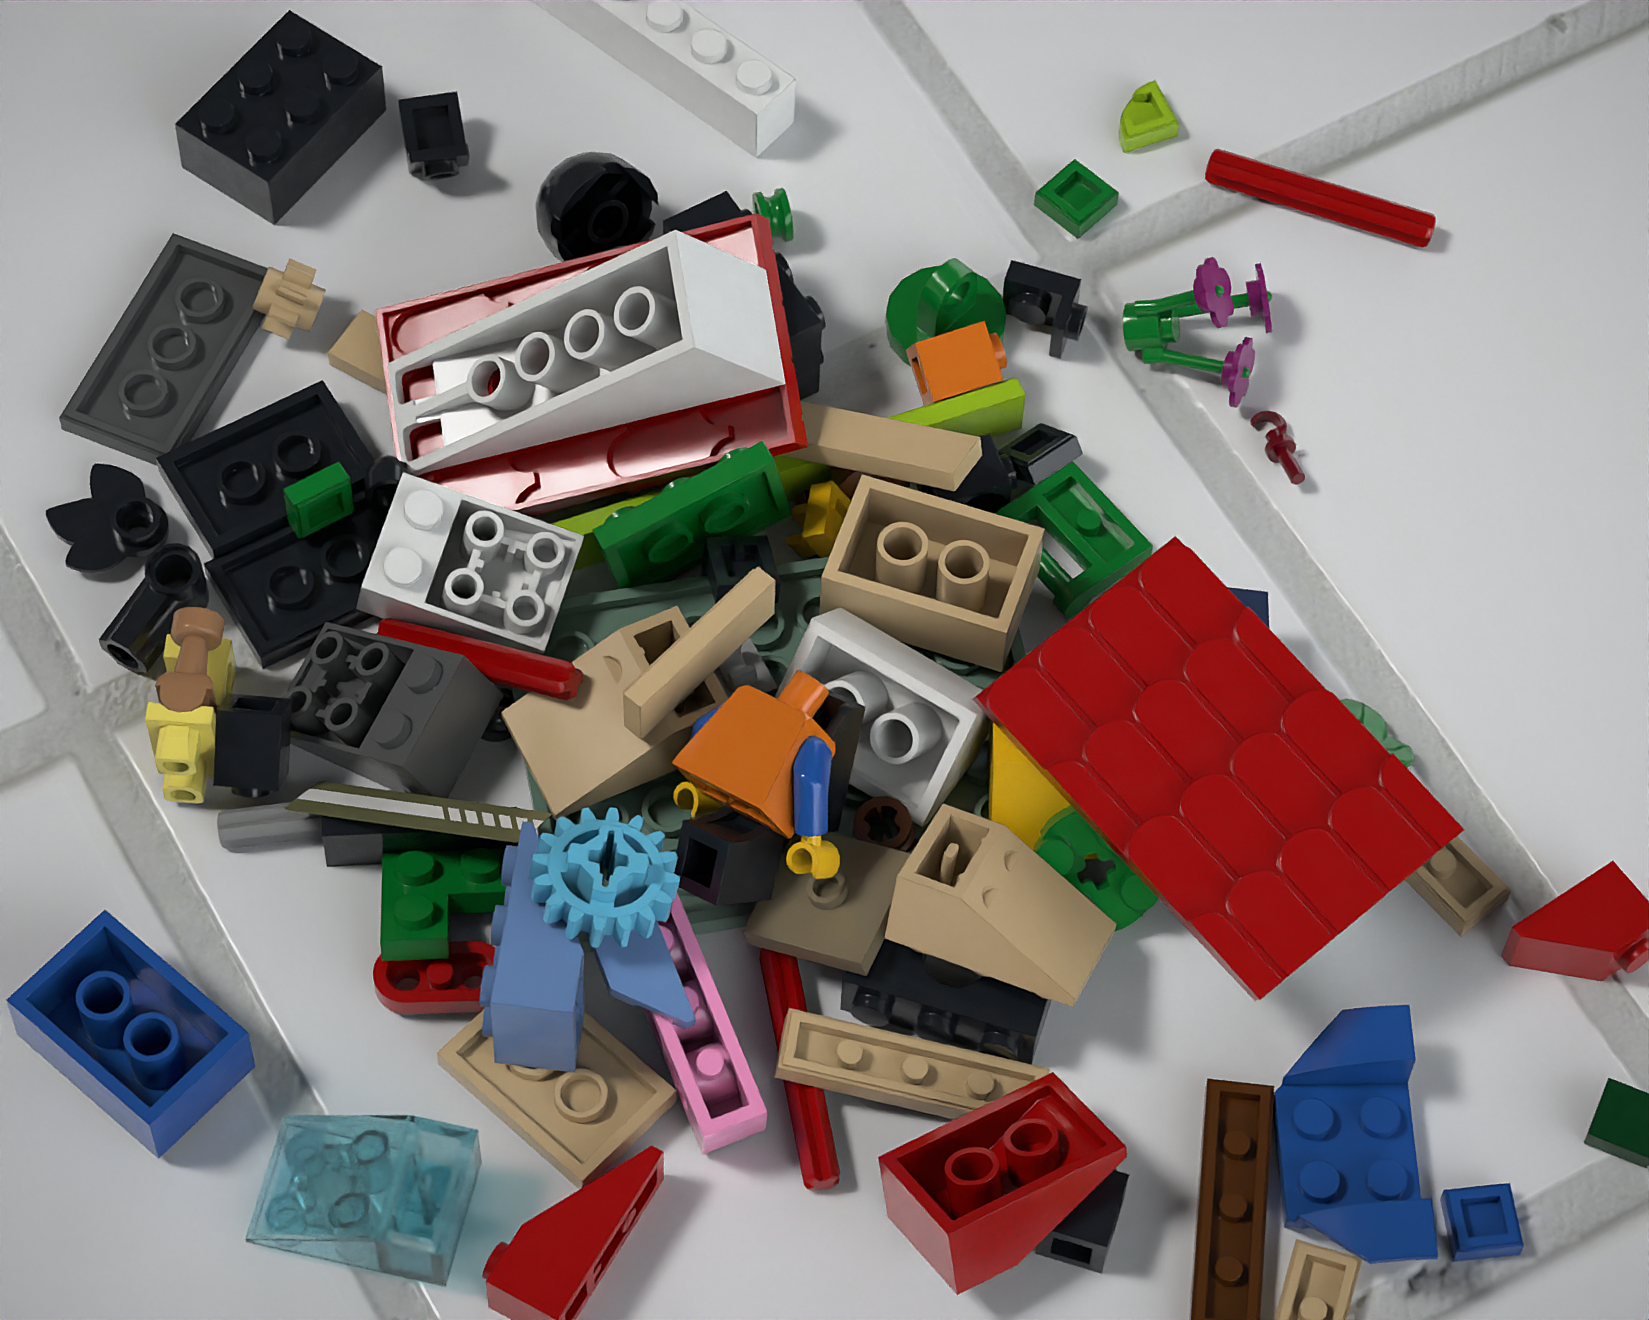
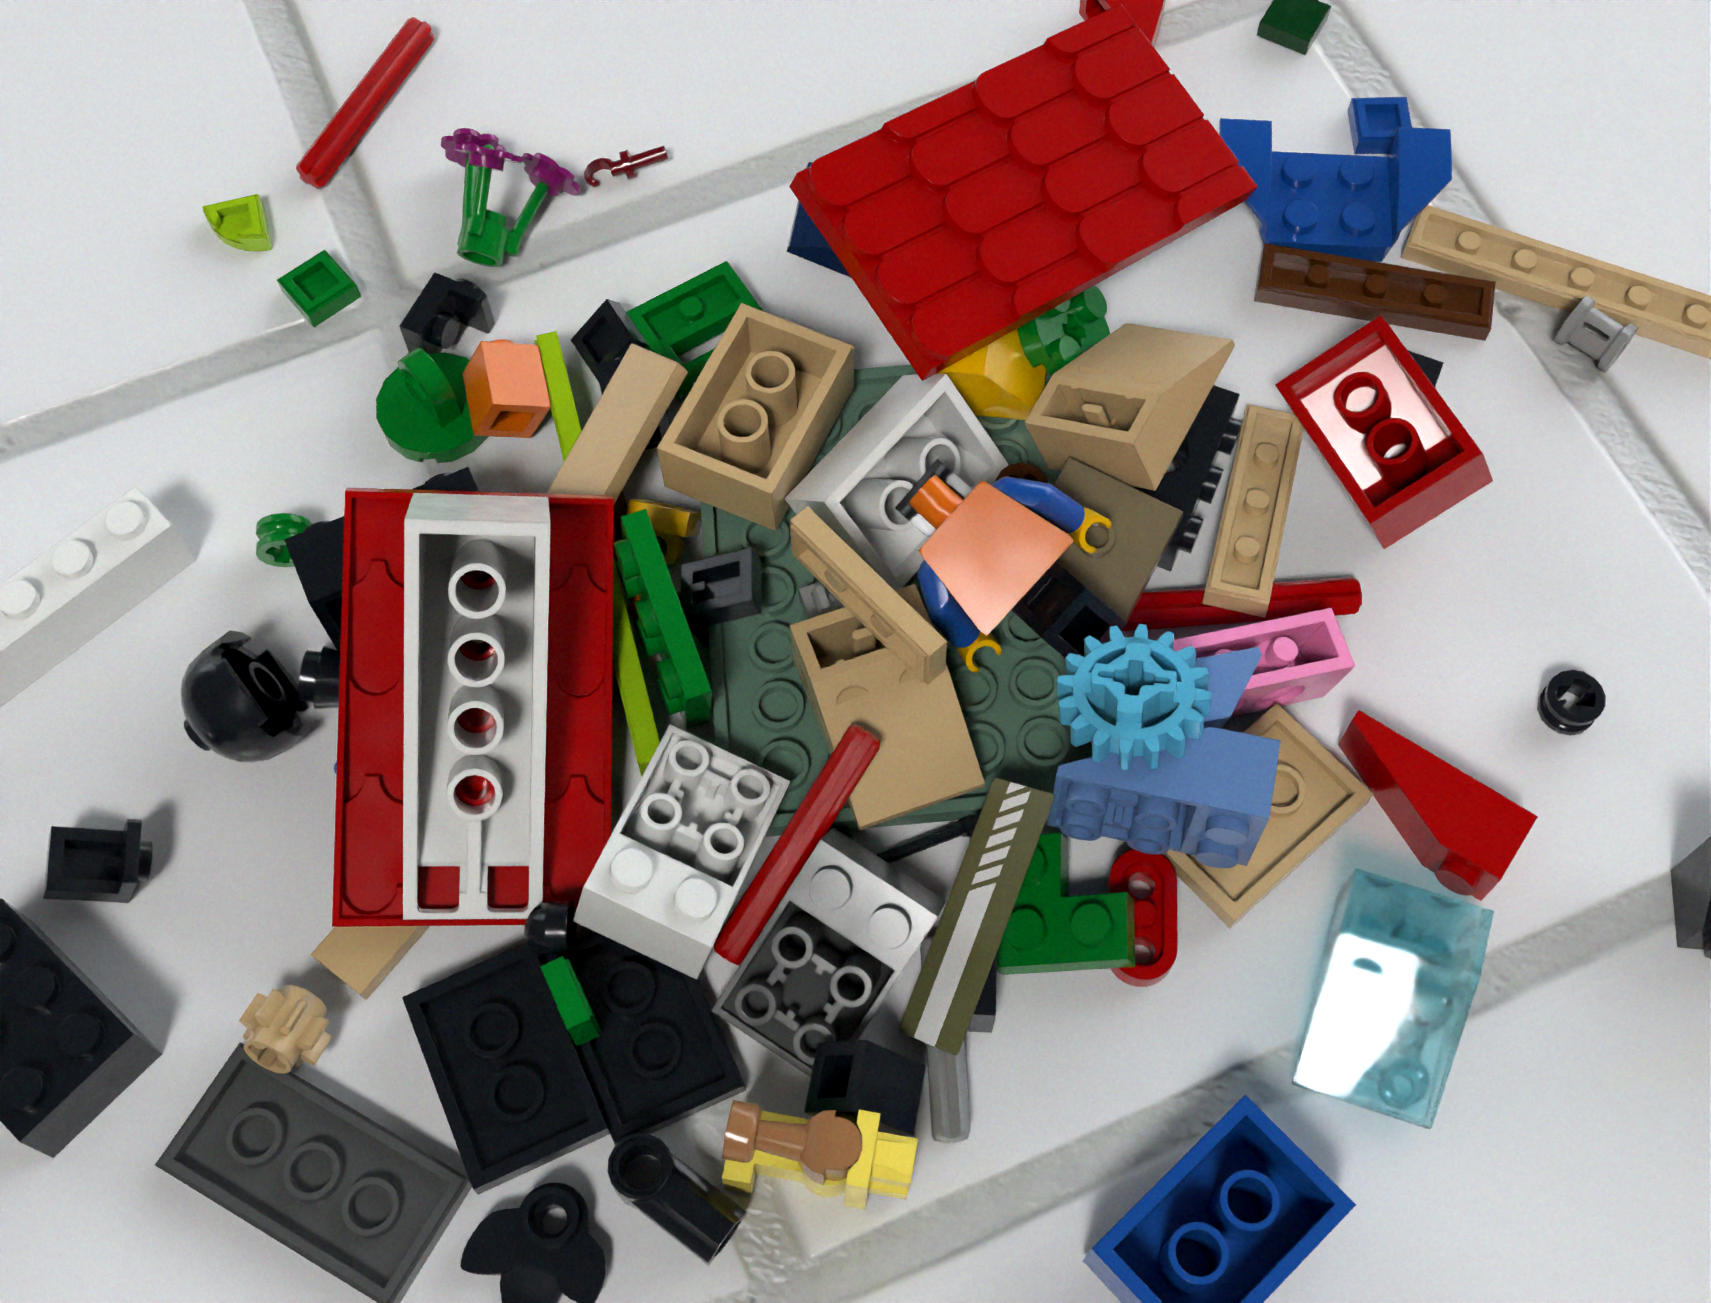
camera: 80 degrees left, 5 degrees up
(486, 749) = (962, 829): none -> black hinge

